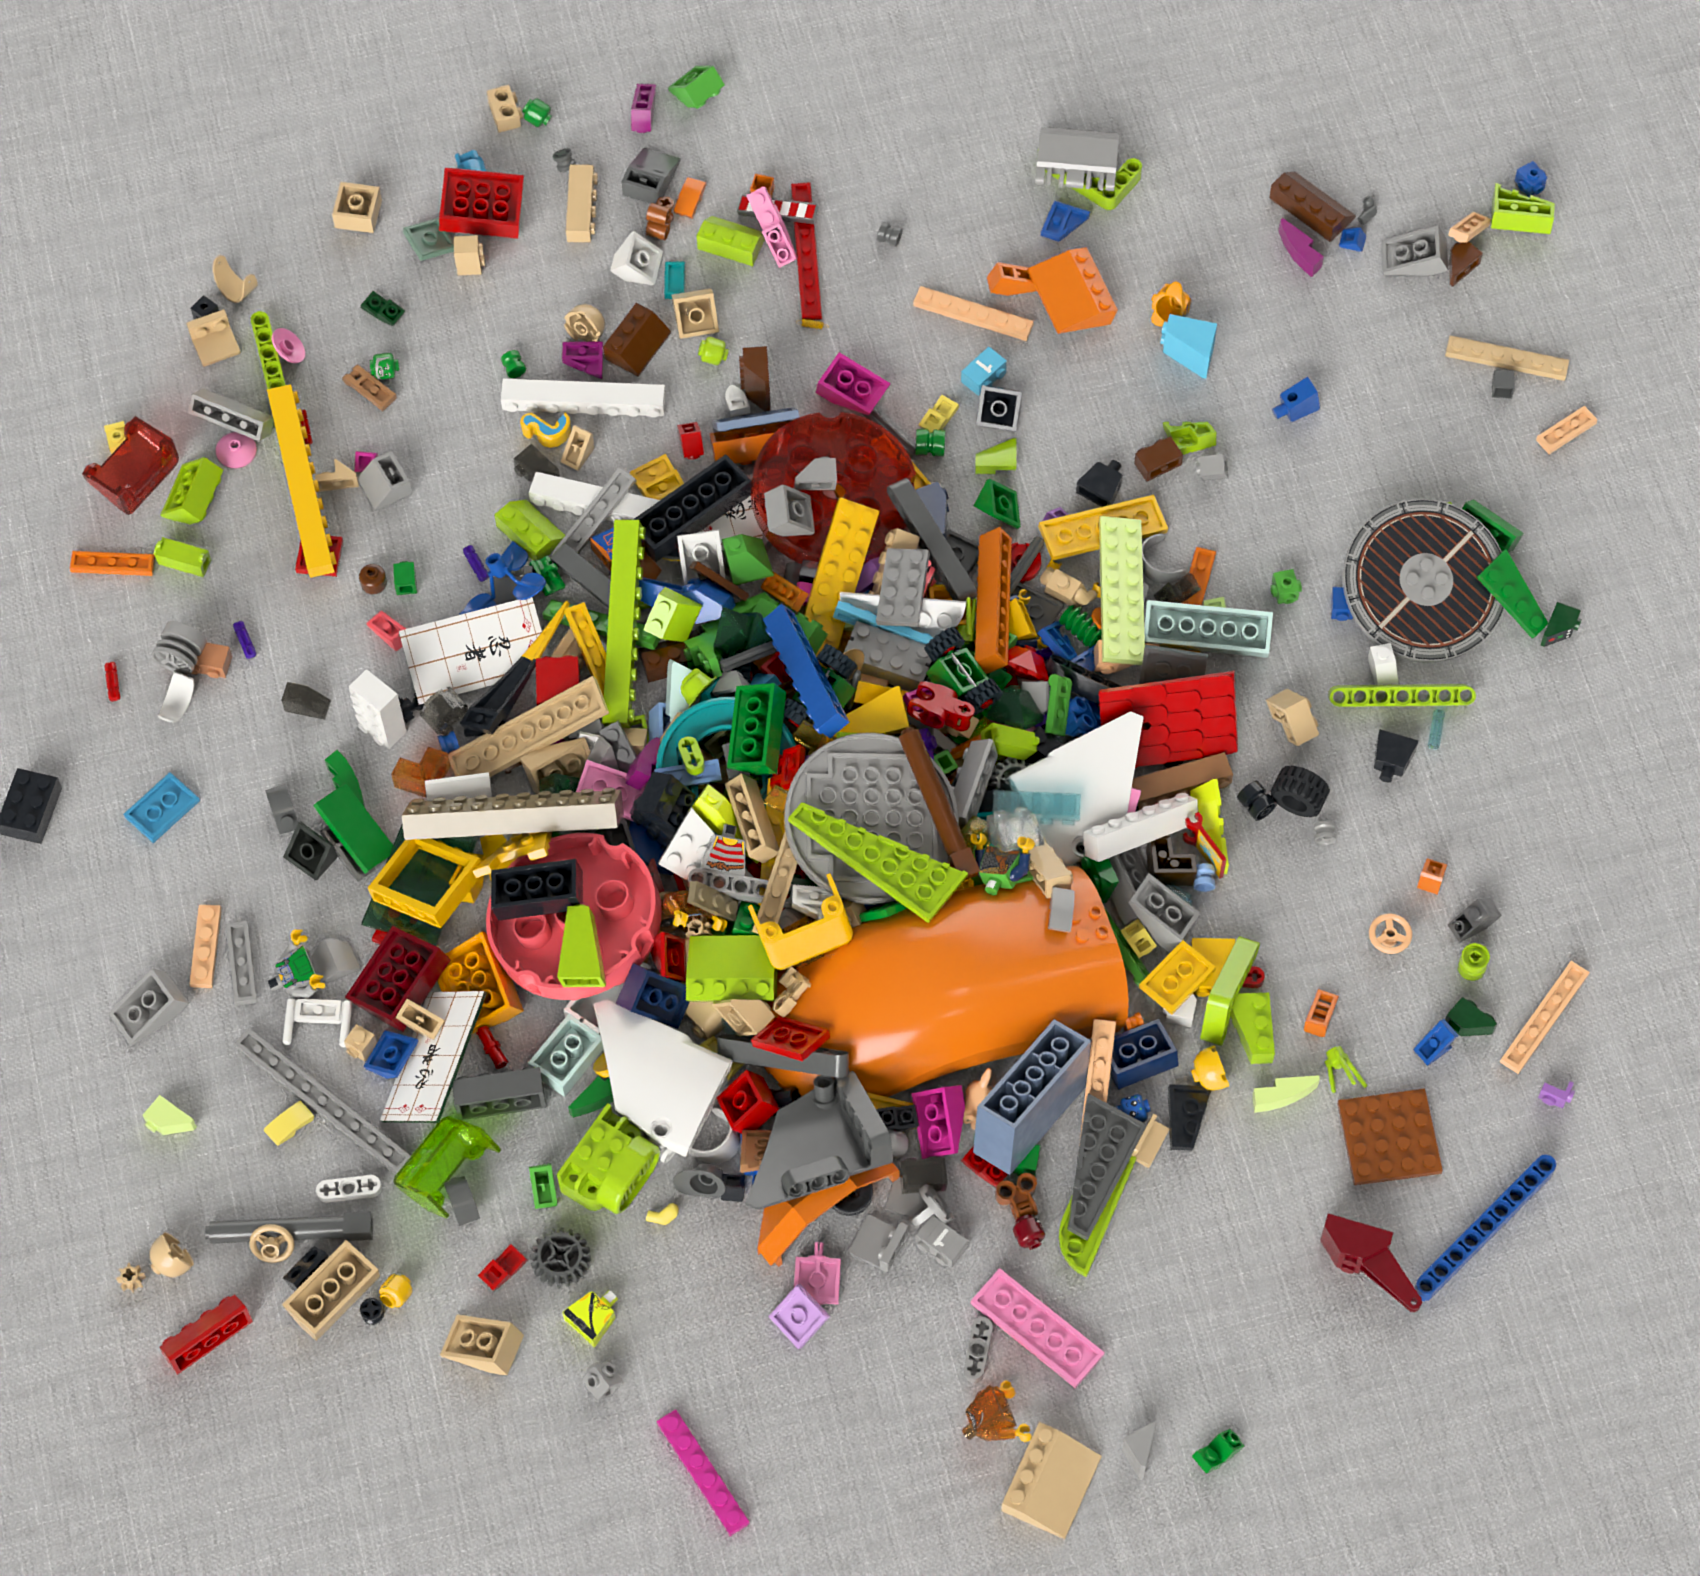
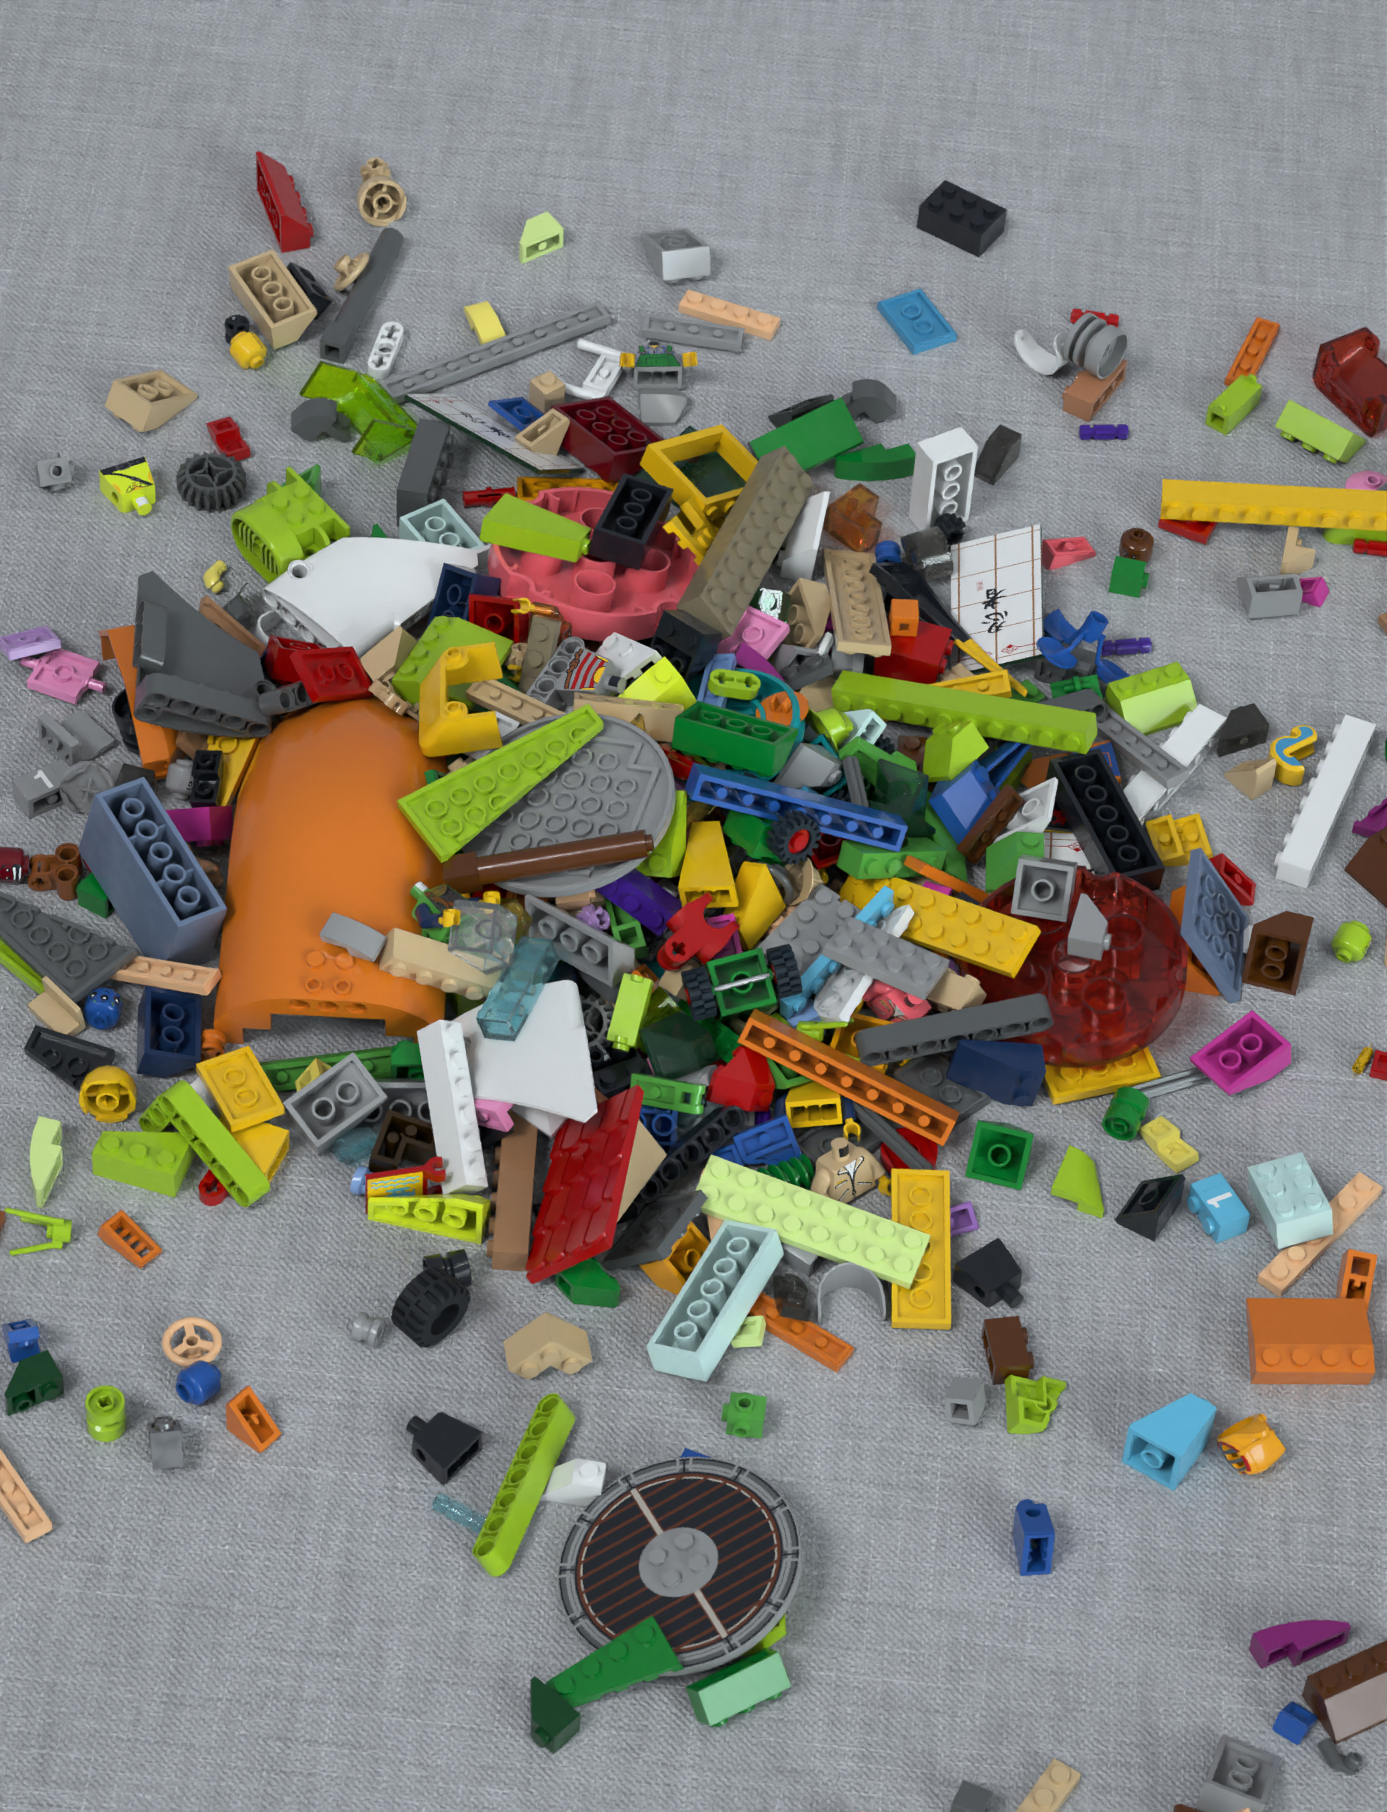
camera: 105 degrees right, 15 degrees down
(546, 685) = (903, 617): none -> orange piece
(701, 719) = (779, 708): none -> orange piece
(966, 327) = (1290, 1200): none -> light aqua brick
(1420, 916) = (198, 1382): none -> blue head

